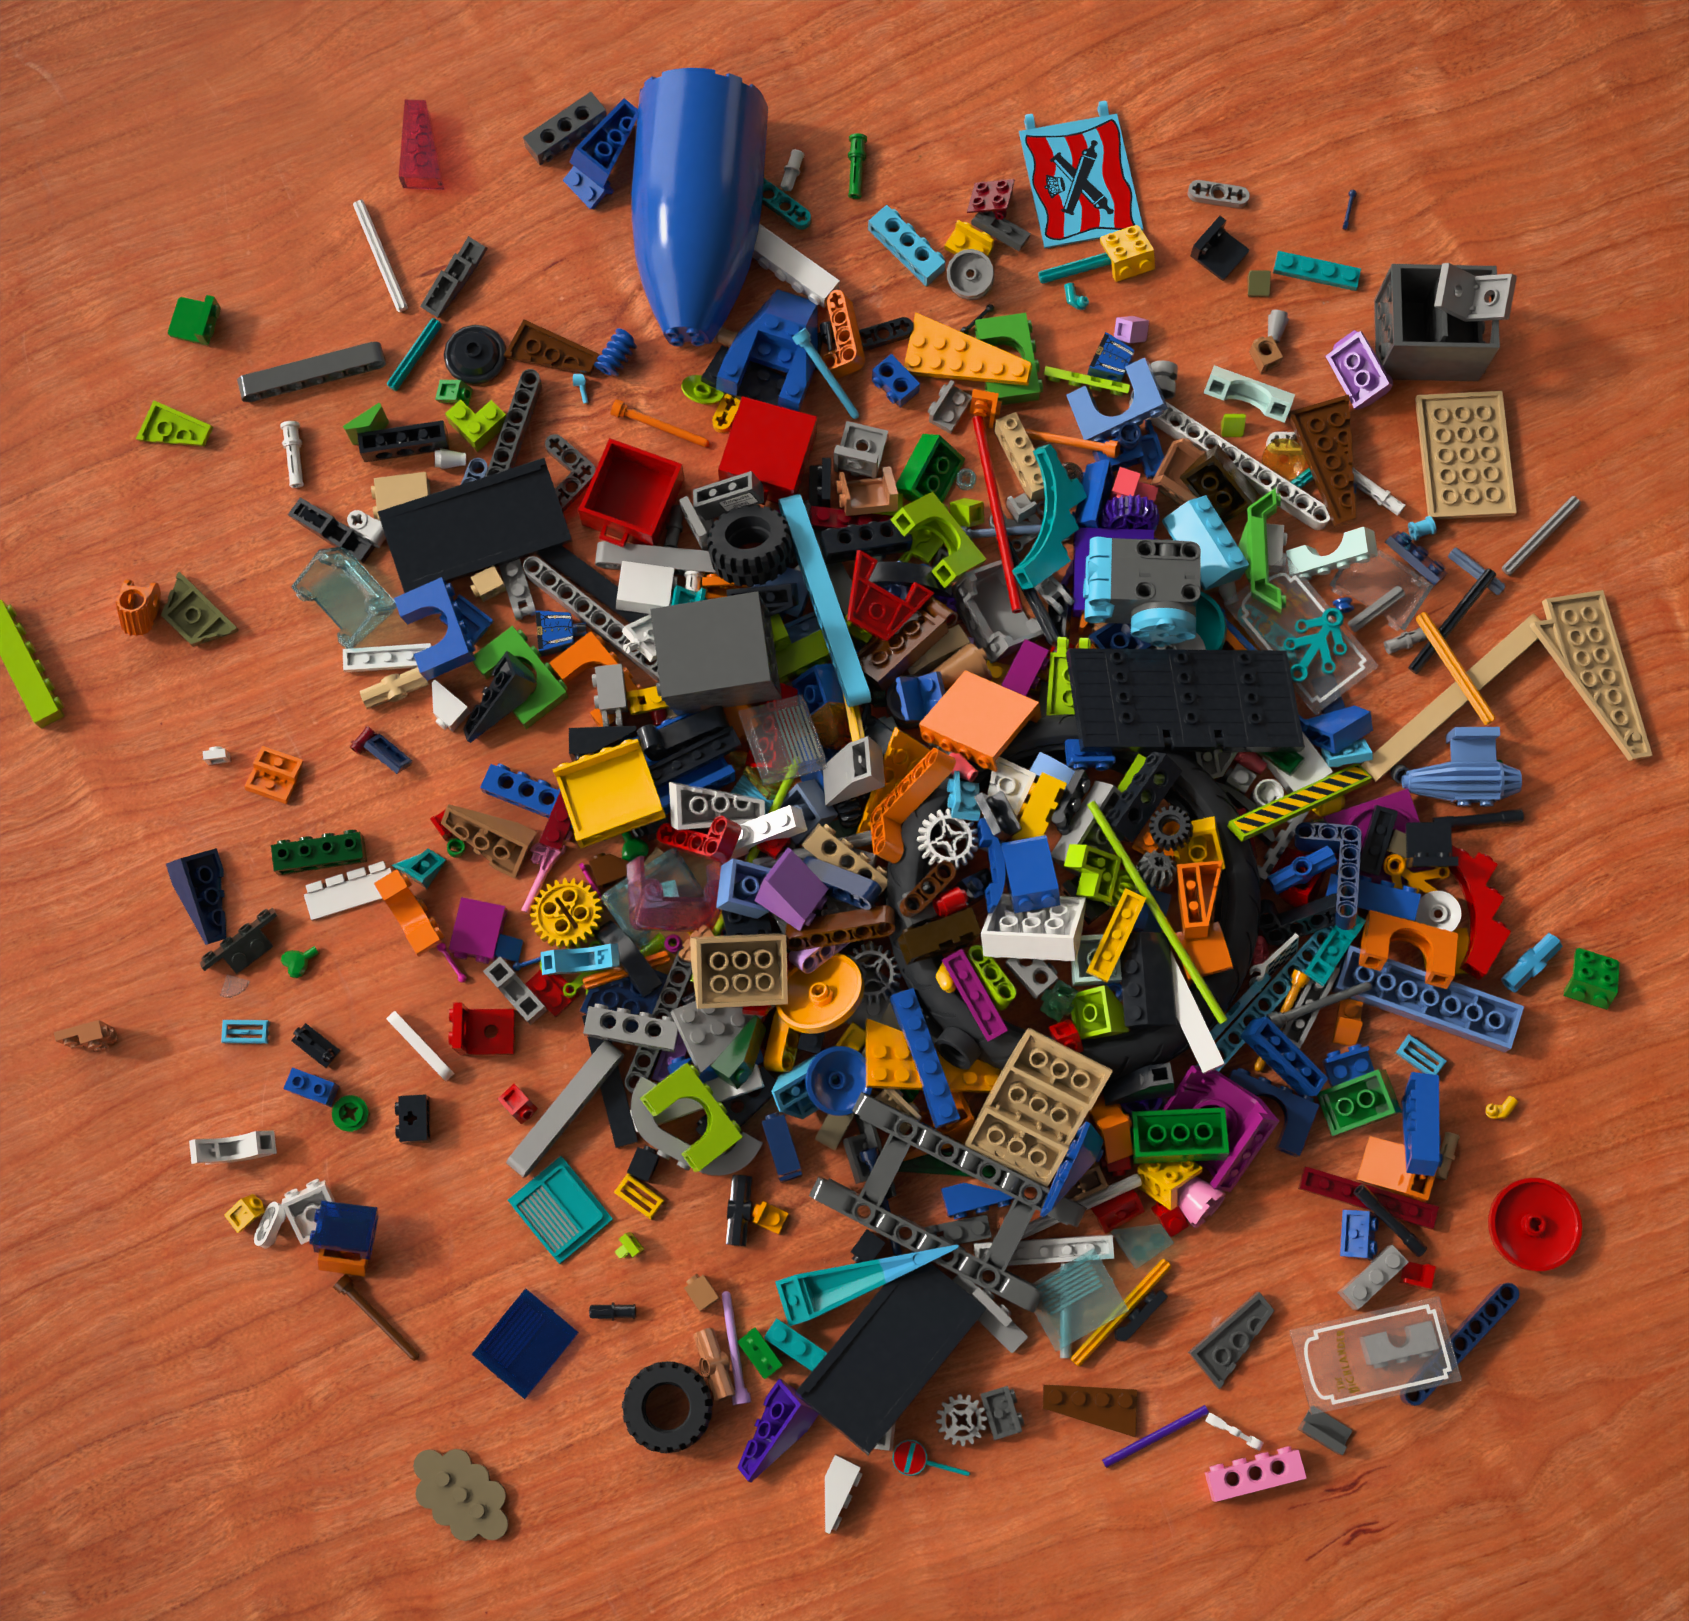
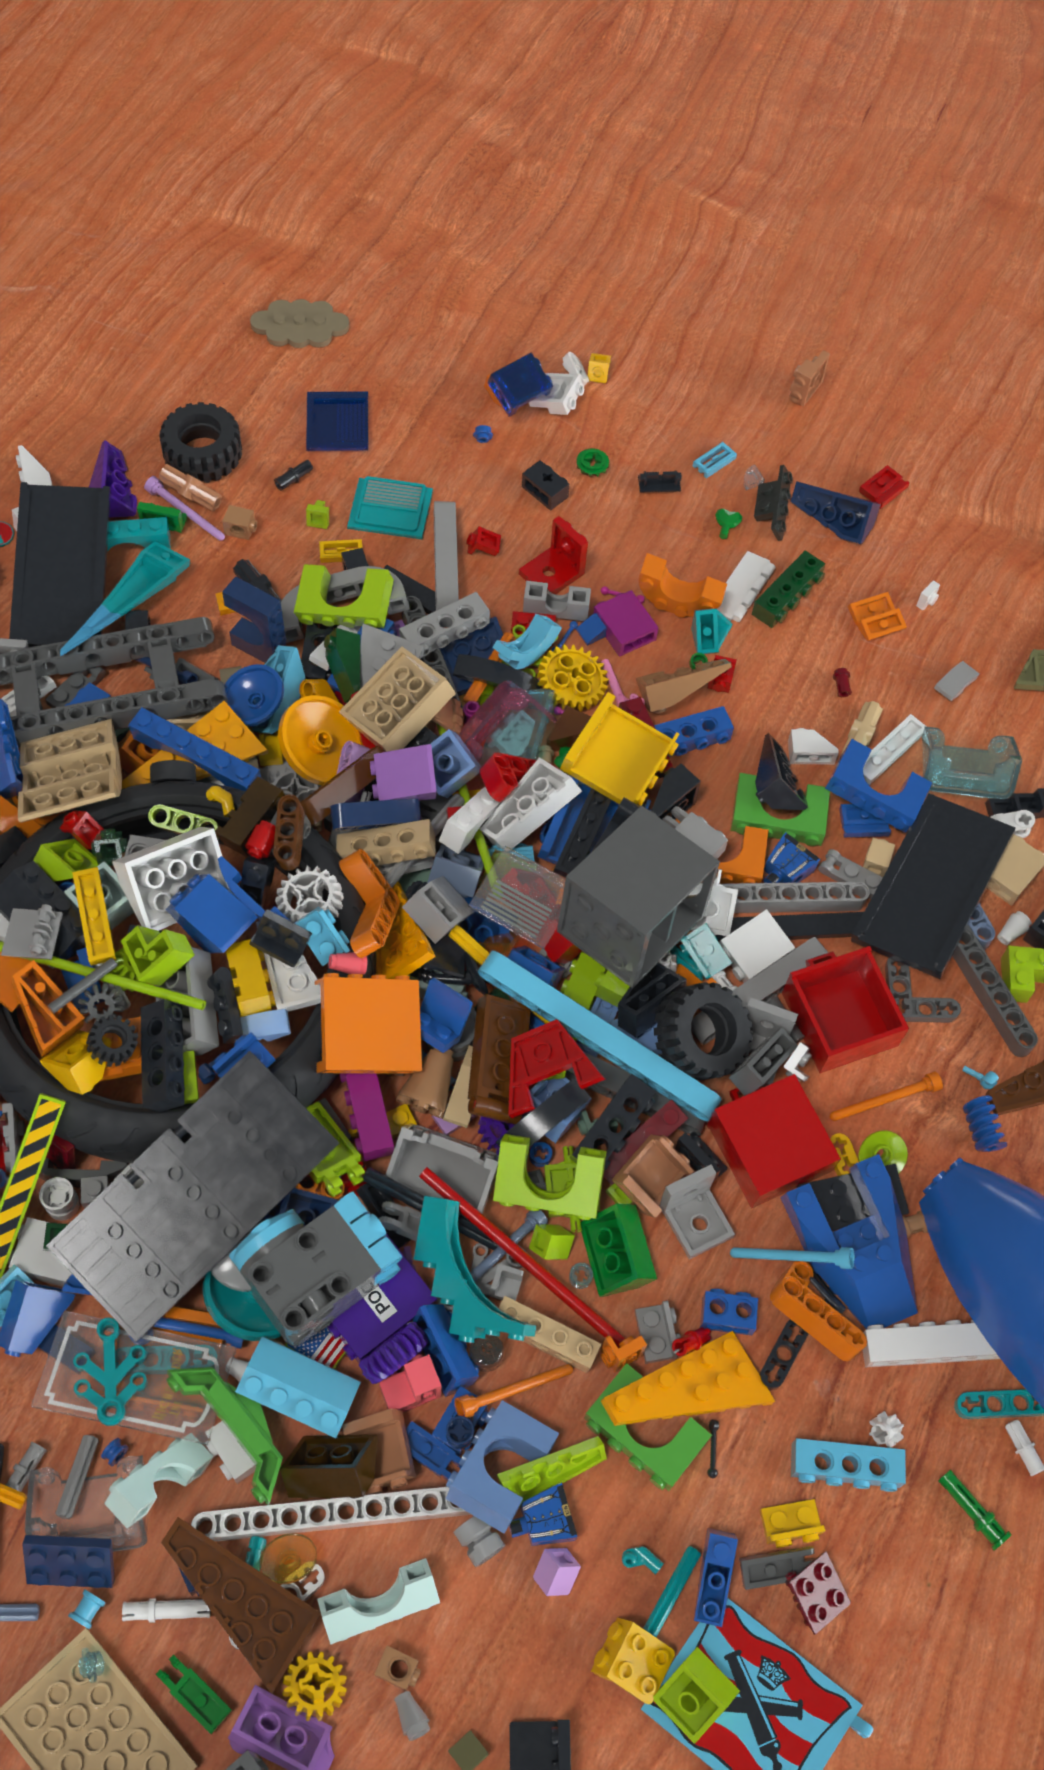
camera: 135 degrees right, 15 degrees down
(137, 884) = (884, 486): none -> red plate
(233, 1149) = (645, 392): white arch -> none
(275, 669) = (956, 680): none -> light grey slope
(311, 1087) = (634, 454): blue brick -> none
(345, 1286) = (454, 371): reddish brown piece -> none
(388, 753) = (815, 685): dark blue plate -> none
(415, 1221) = (483, 433): none -> blue plate
(420, 1046) = (618, 532): white beam -> none
(698, 480) = (799, 1057): none -> bracket
(865, 242) = (886, 1429): none -> white gear
(937, 380) = (691, 1341): none -> red axle
(975, 995) = (184, 798): magenta plate -> none
(976, 263) = (759, 1480): light grey wheel -> none
(1040, 253) = (715, 1576): none -> blue slope
(1108, 205) = (696, 1695): none -> lime slope
(1119, 769) = (206, 1072): none -> dark blue hand
(1163, 883) = (82, 985): none -> dark grey bar
(1169, 957) = (32, 933): none -> light grey hinge
(1233, 425) = (370, 1555): lime slope -> none
(1312, 378) = (303, 1689): none -> yellow gear
(1391, 433) = (196, 1696): none -> green hinge
(1442, 489) = (91, 1664): none -> clear light blue plate

